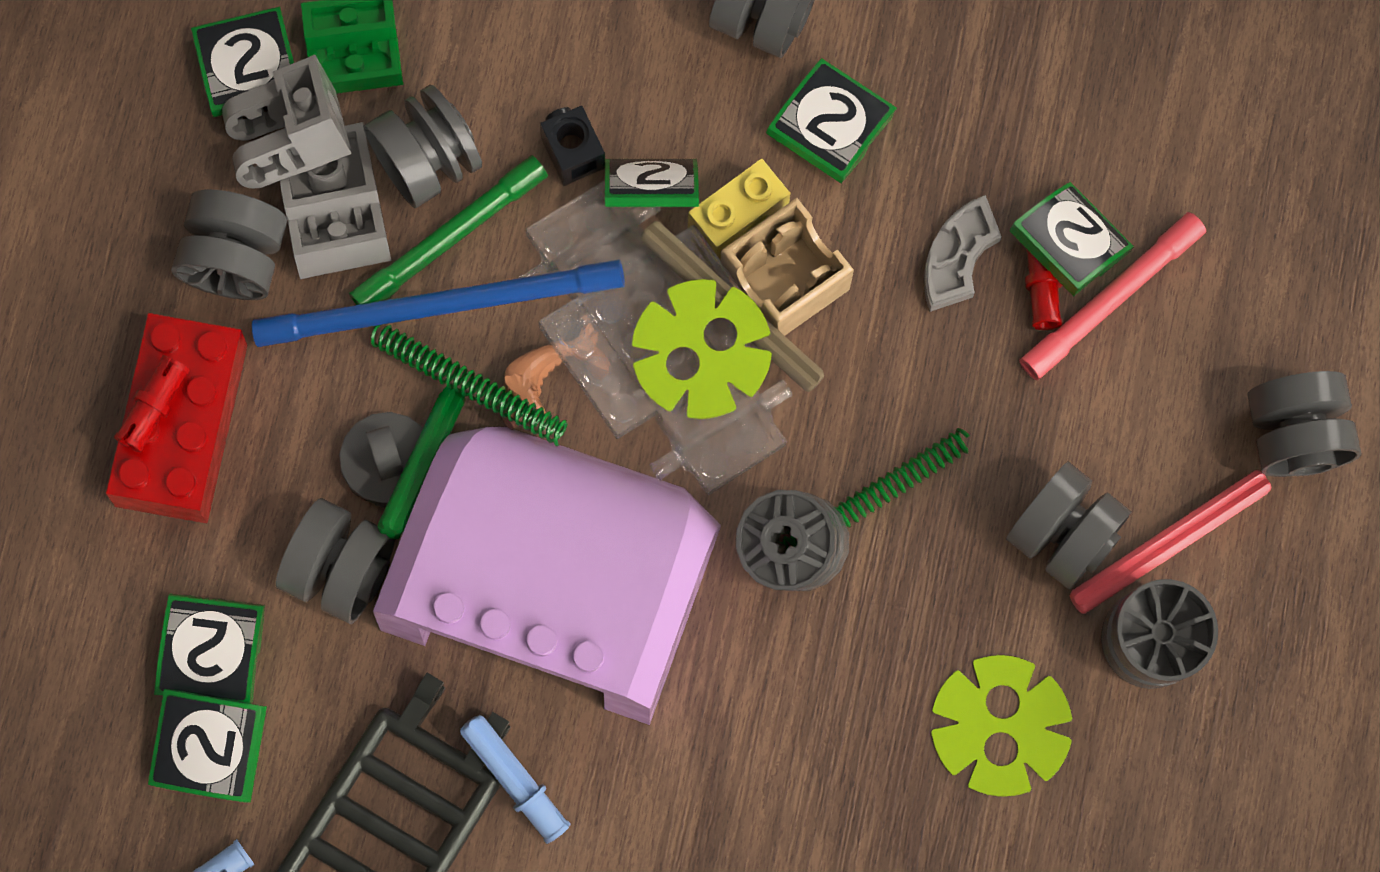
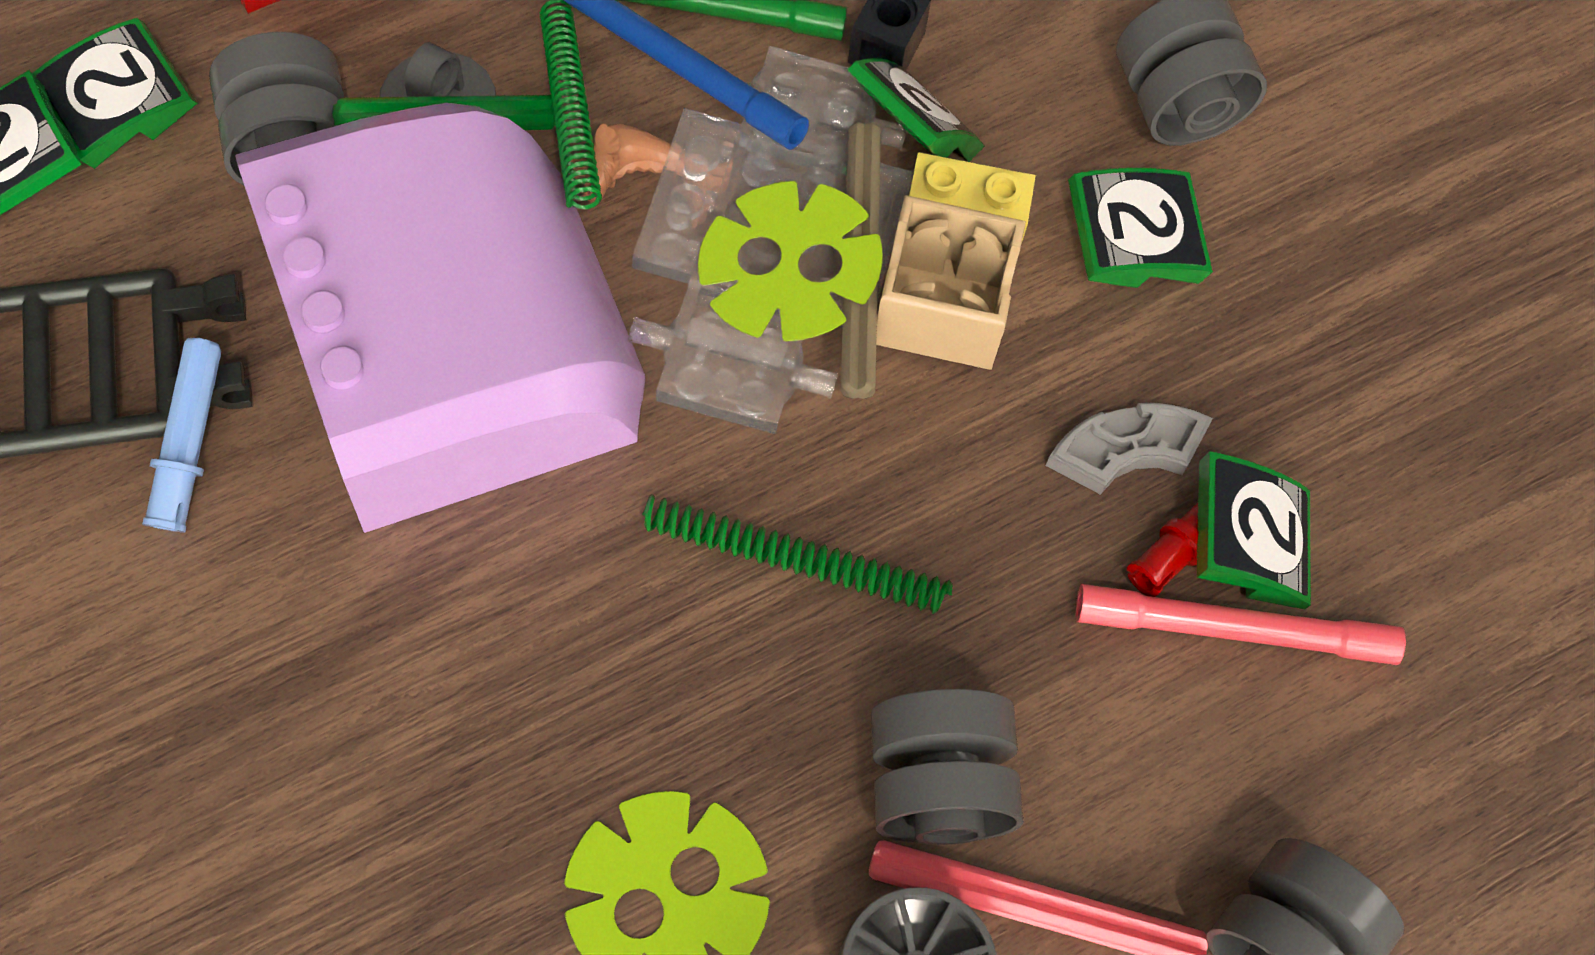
camera: 45 degrees right, 10 degrees down
(820, 535) = (668, 497): dark grey wheel -> none

